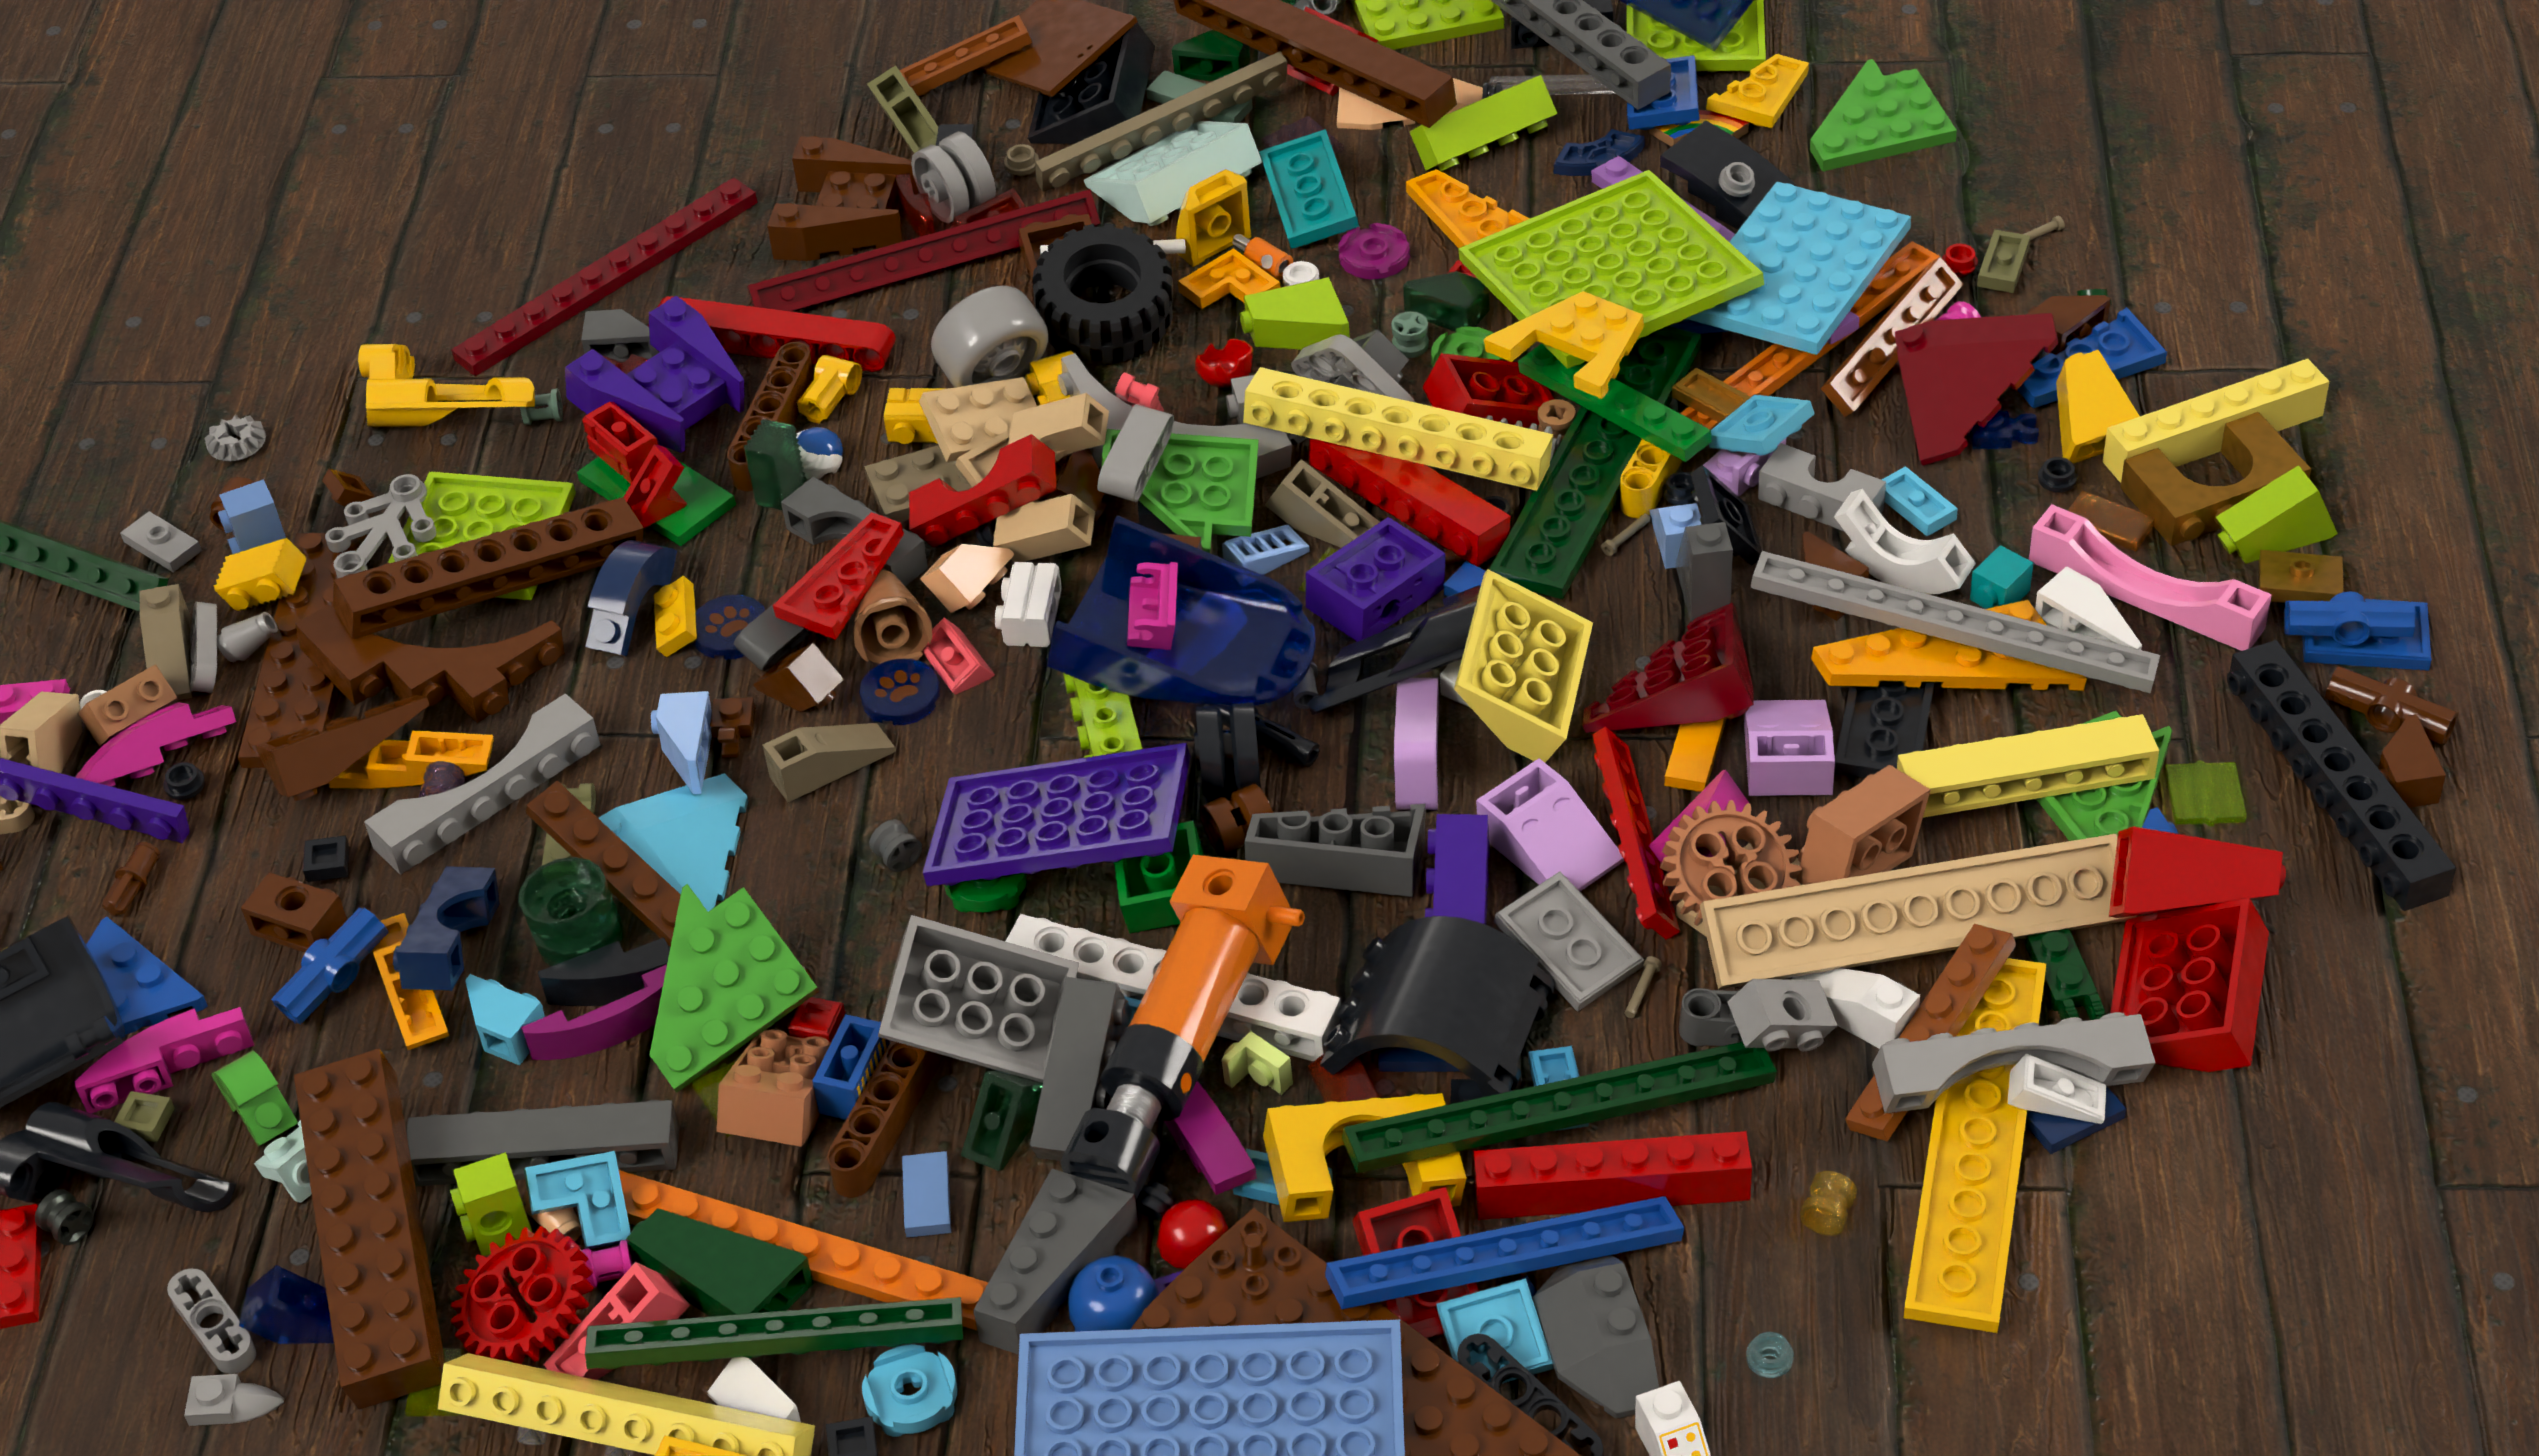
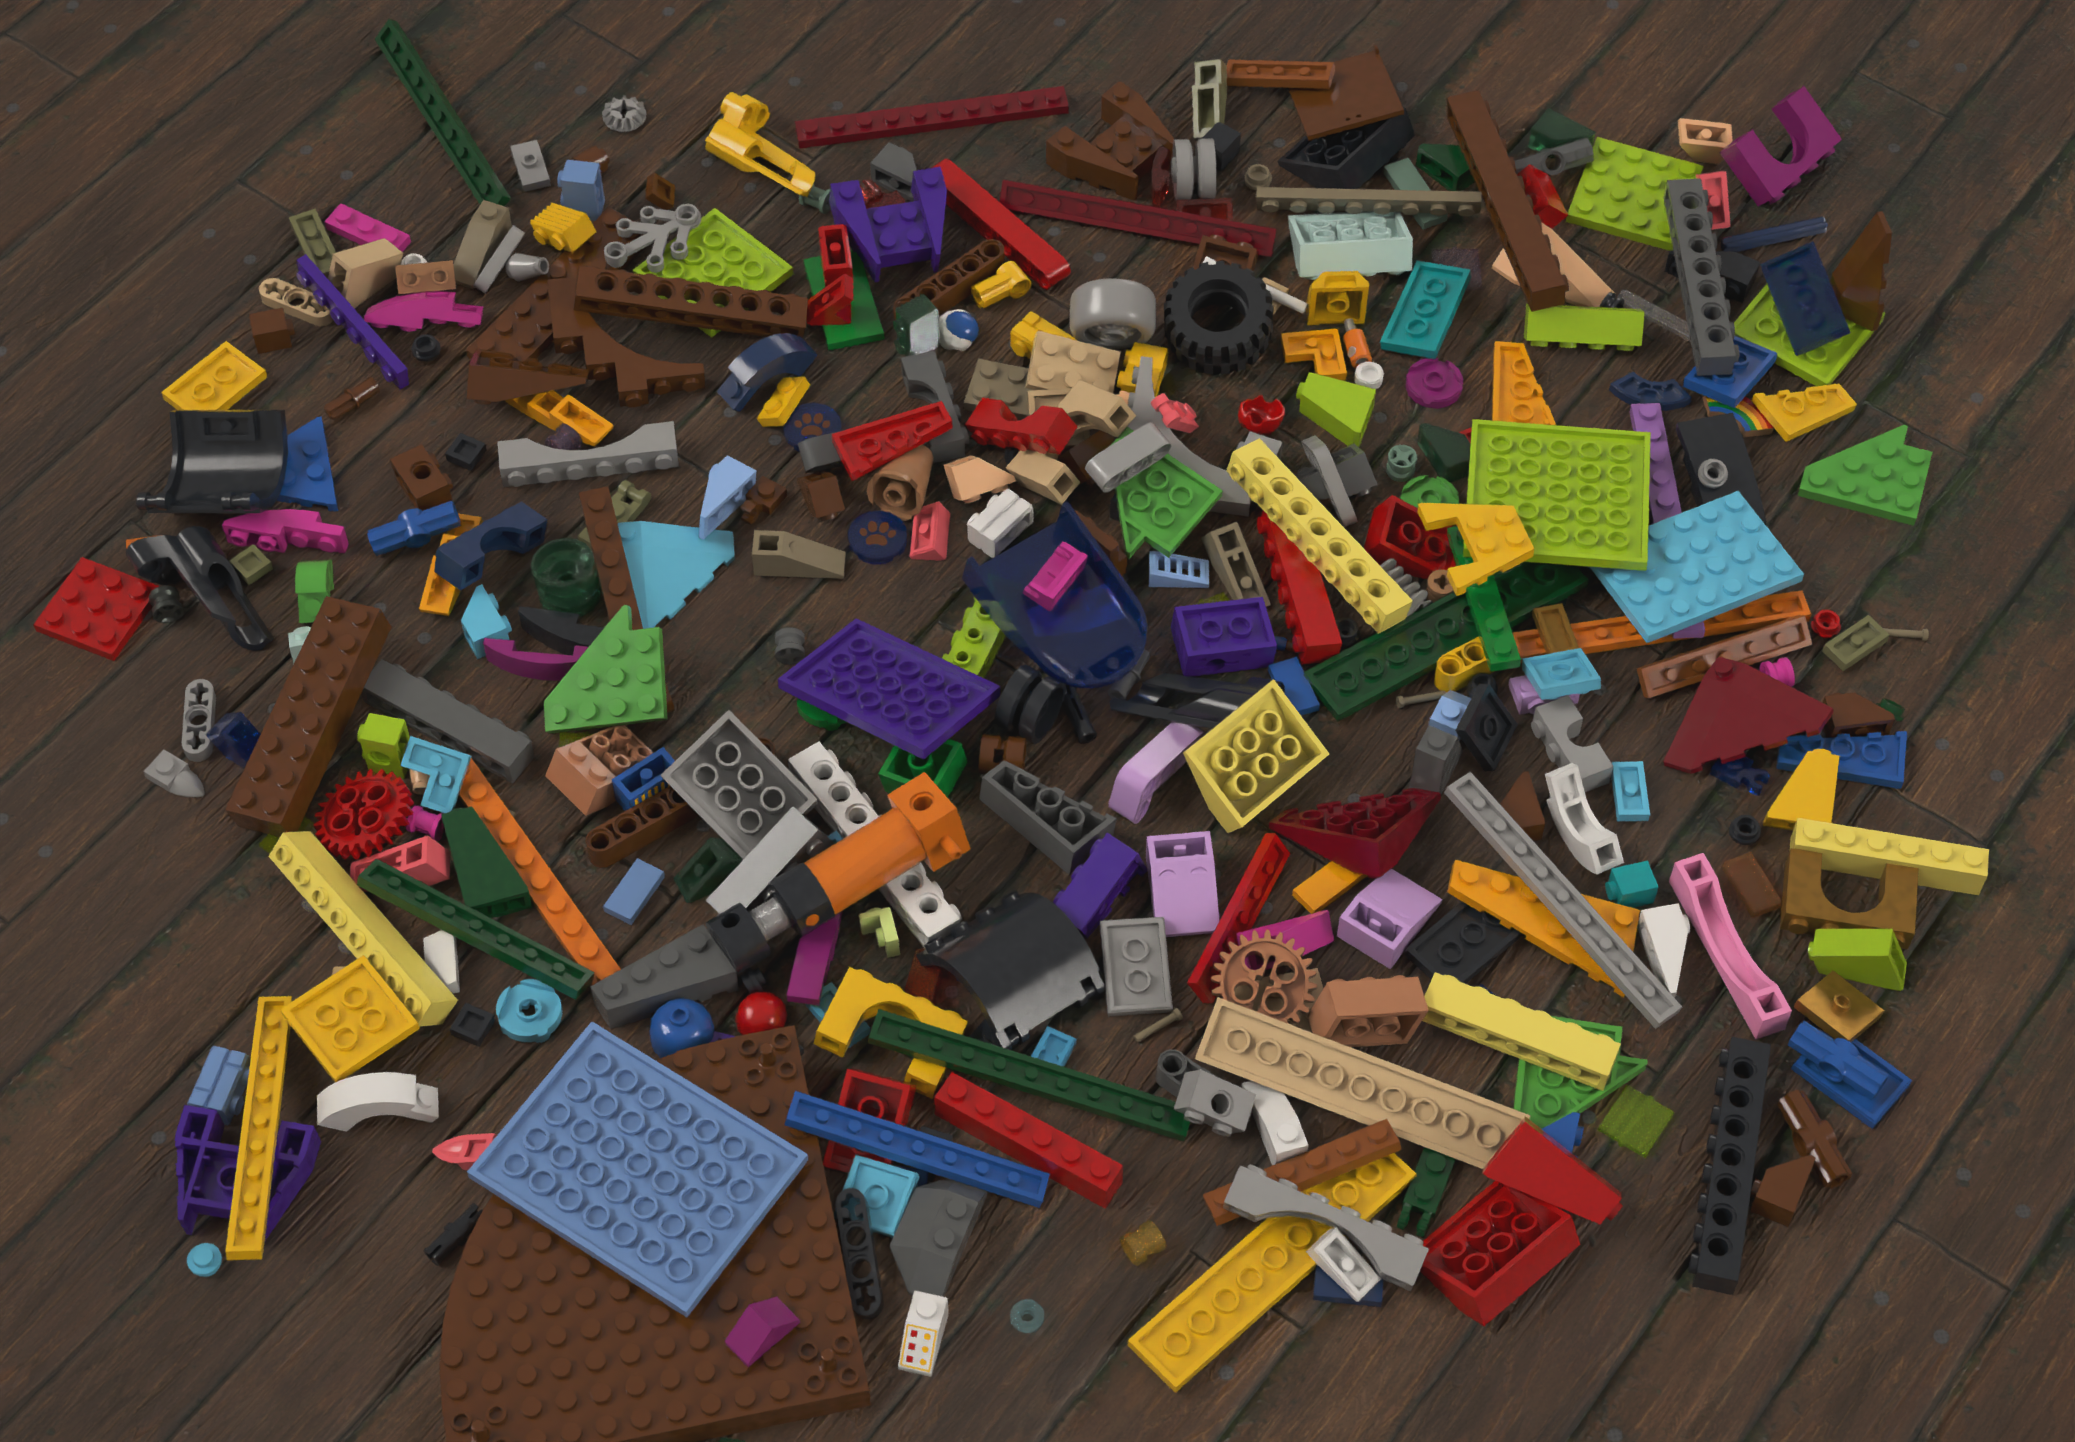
camera: 30 degrees right, 10 degrees up
(817, 1018) = (659, 735): red tile -> none

